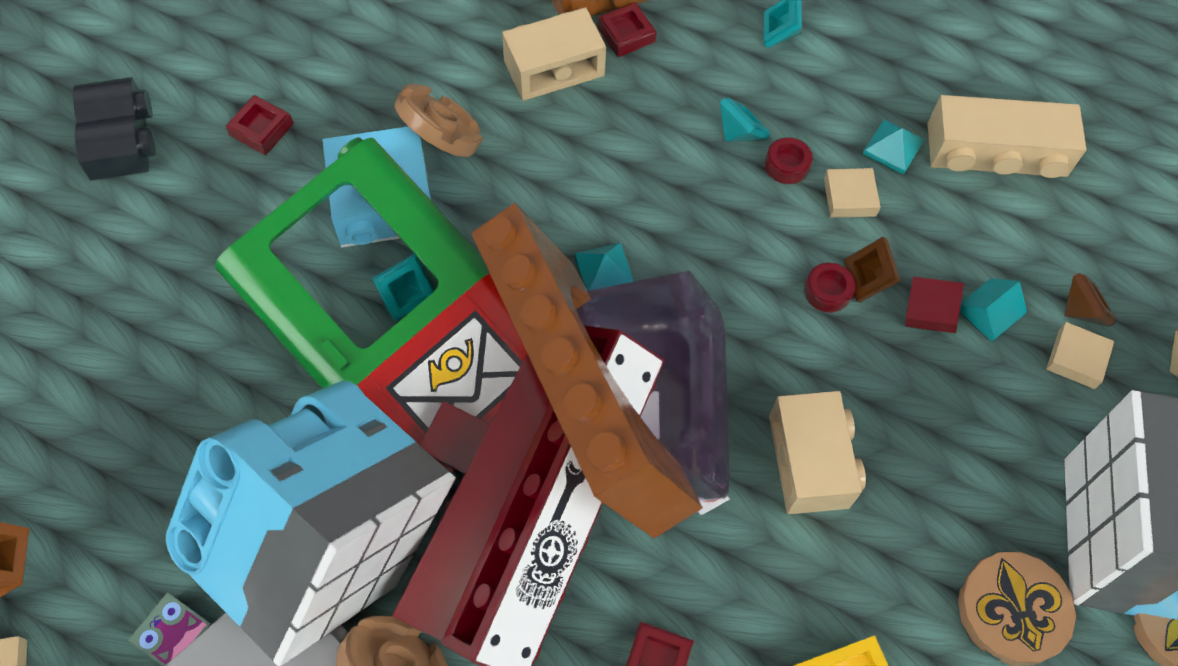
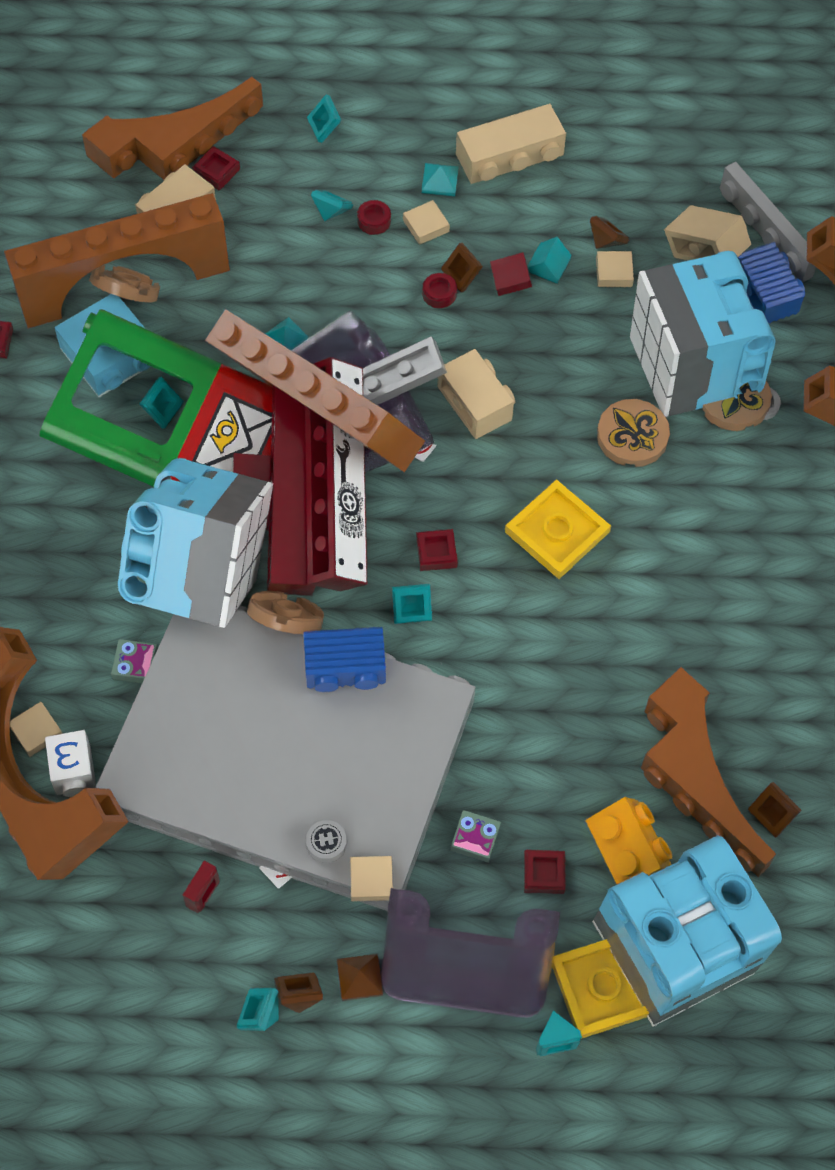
camera: 25 degrees left, 0 degrees up
(347, 64) = (51, 267): none -> dark orange arch
(720, 385) = (403, 371): none -> light grey plate

